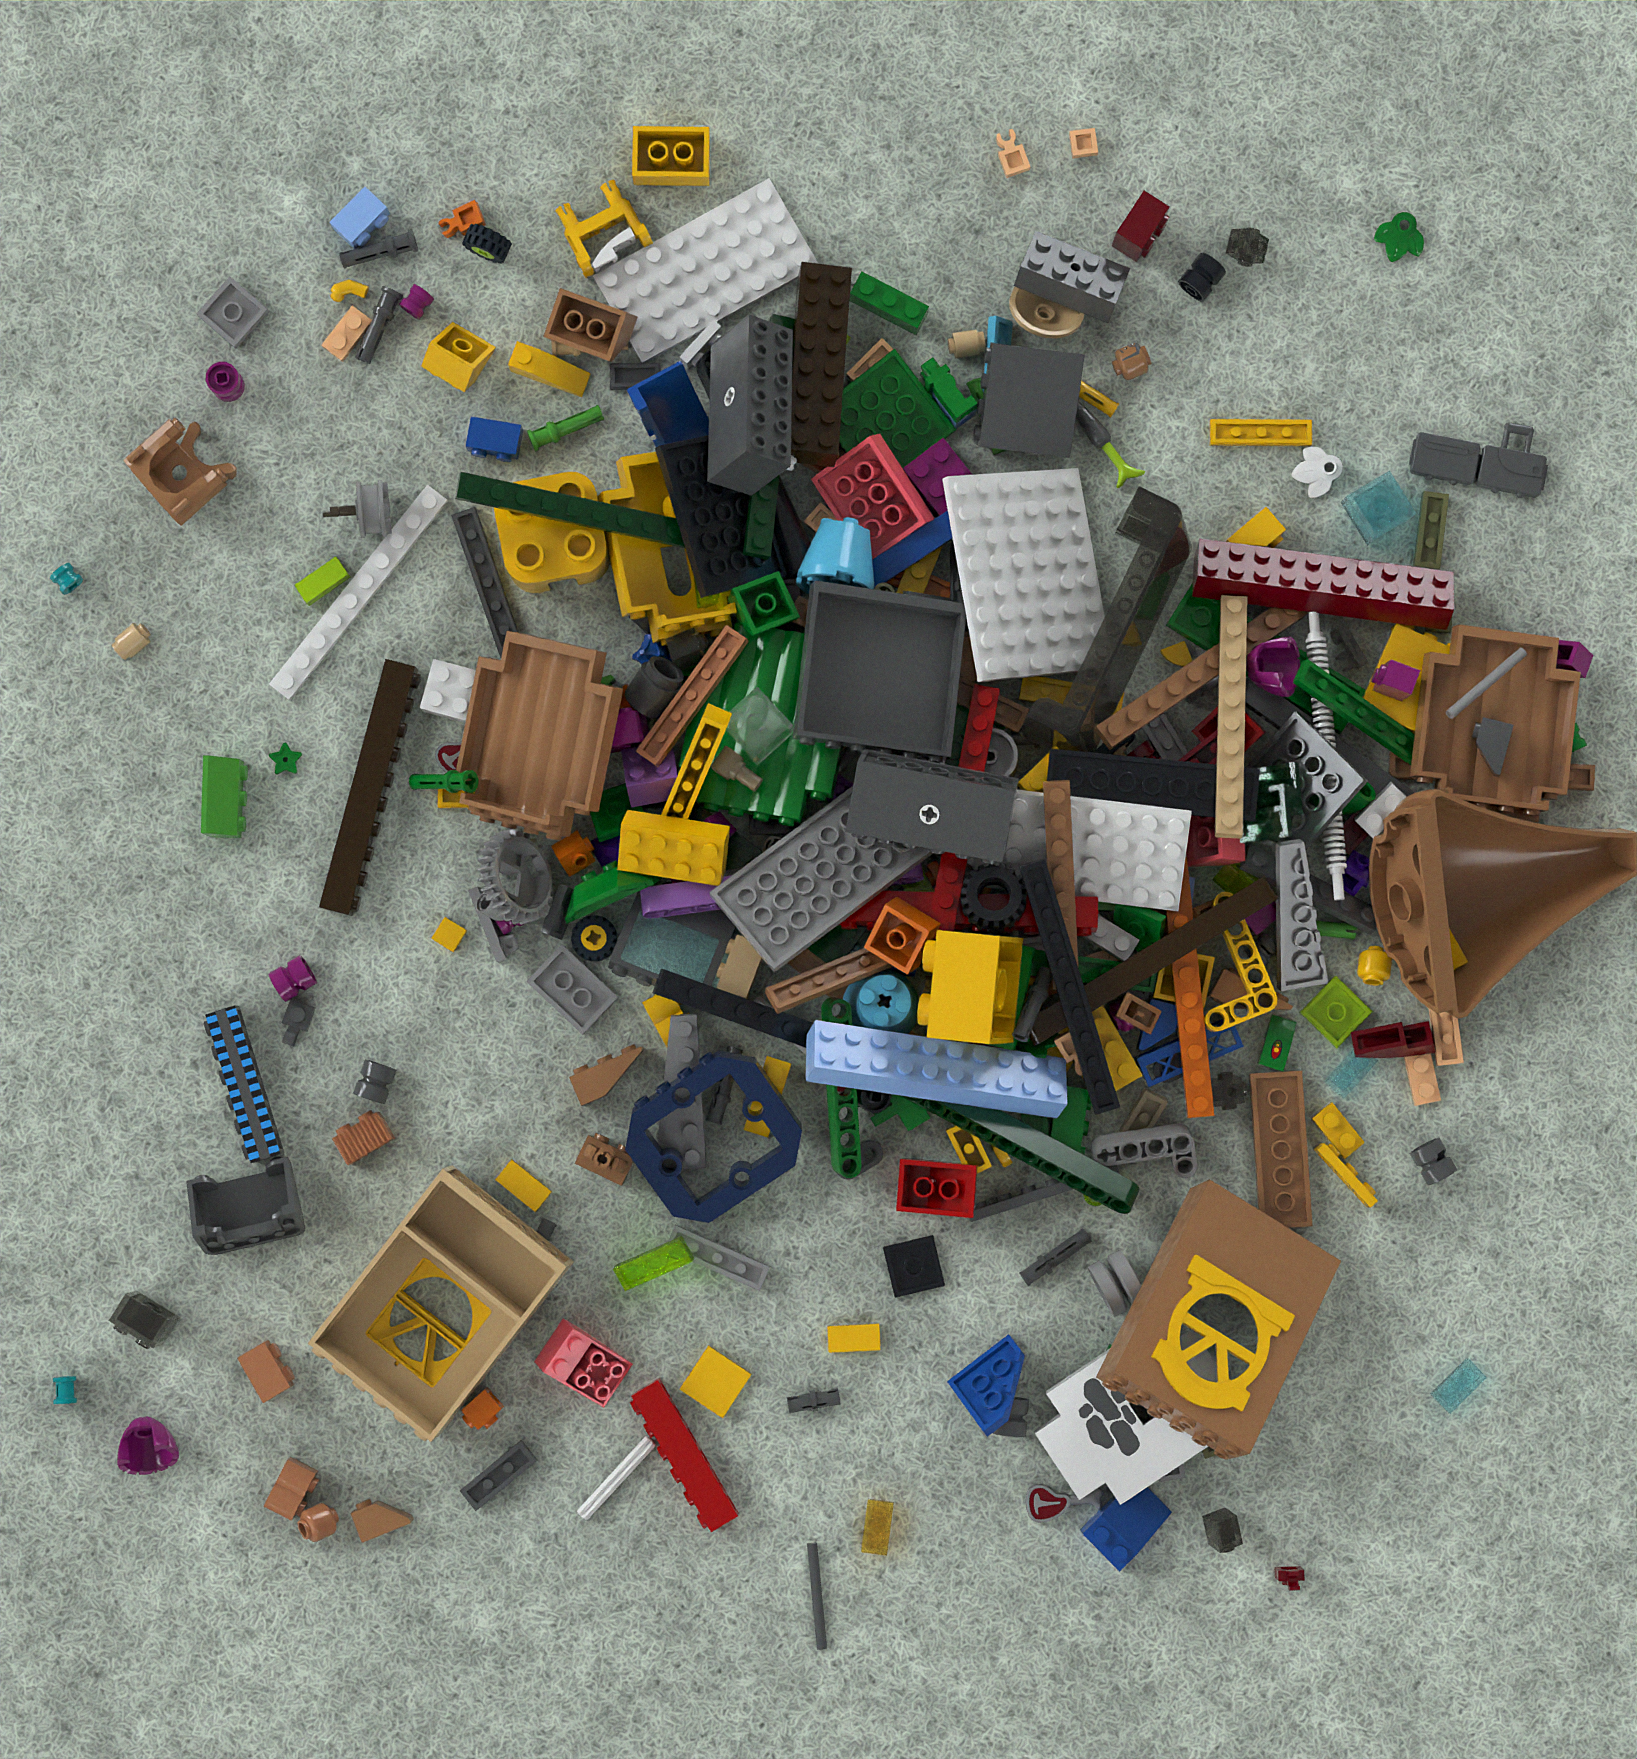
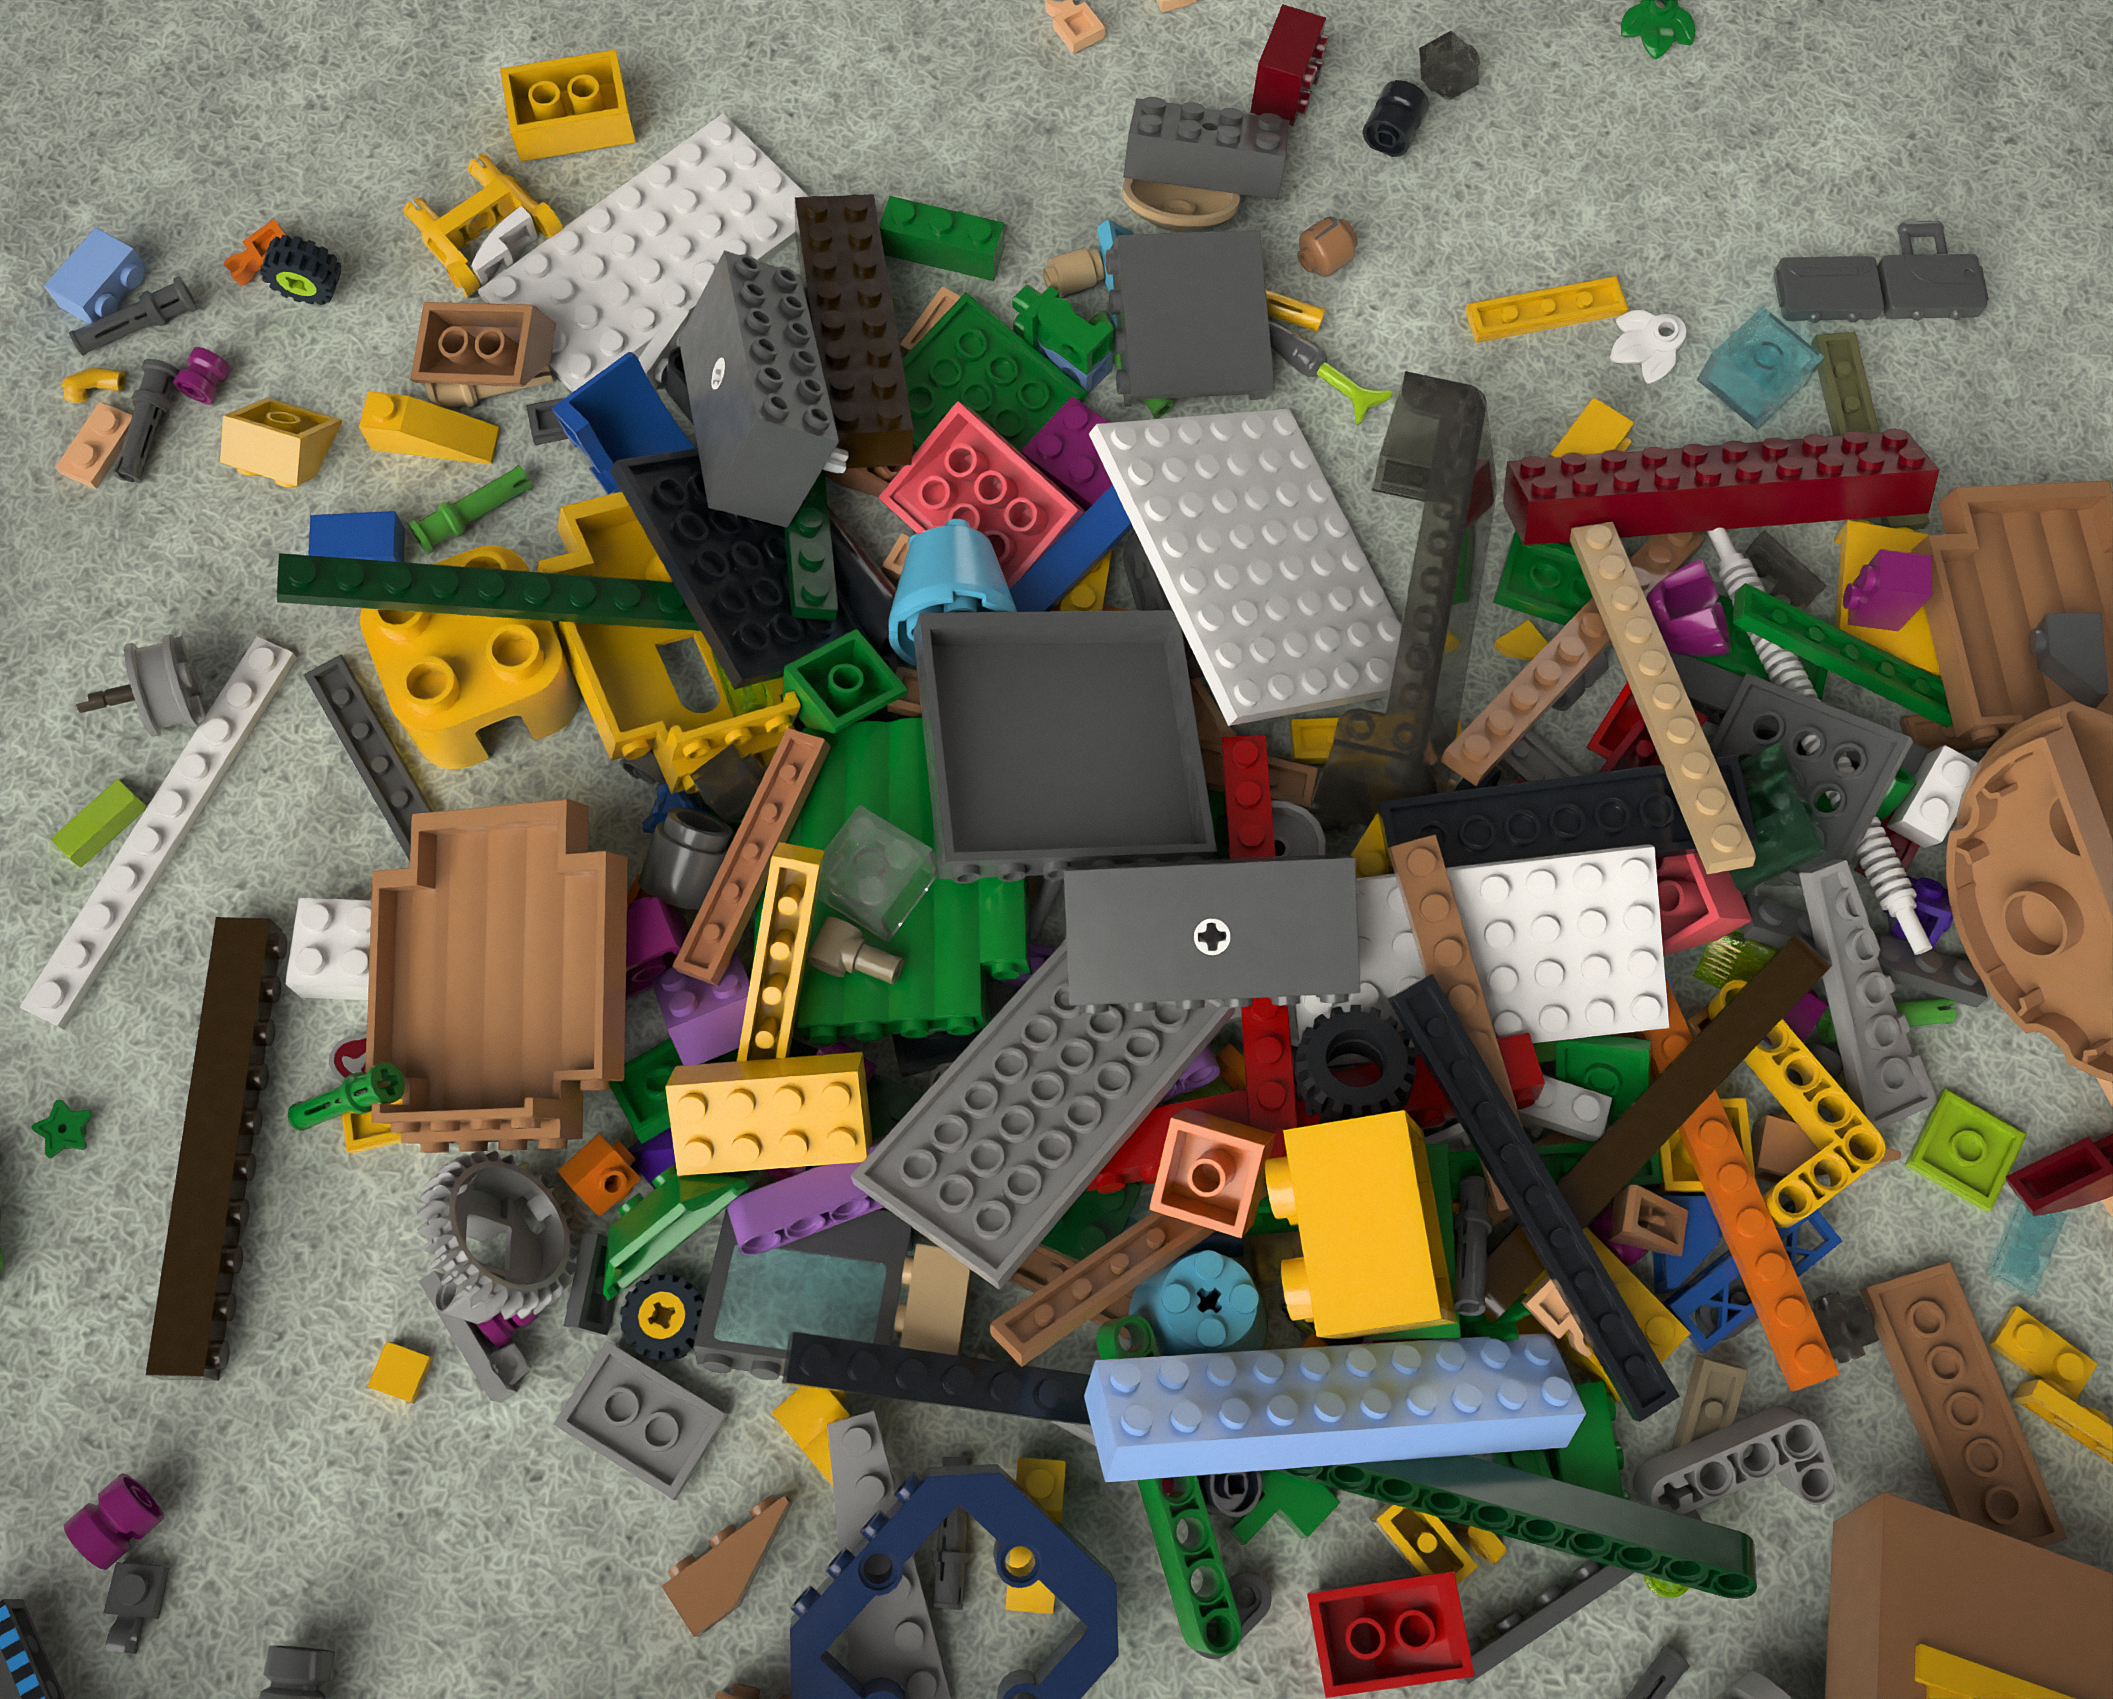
camera: 15 degrees left, 15 degrees down
(1277, 1042) = (1892, 1225): green slope -> none
(1374, 966) = (2004, 1056): yellow head -> none
(1487, 682) = (2028, 566): light grey piece -> none

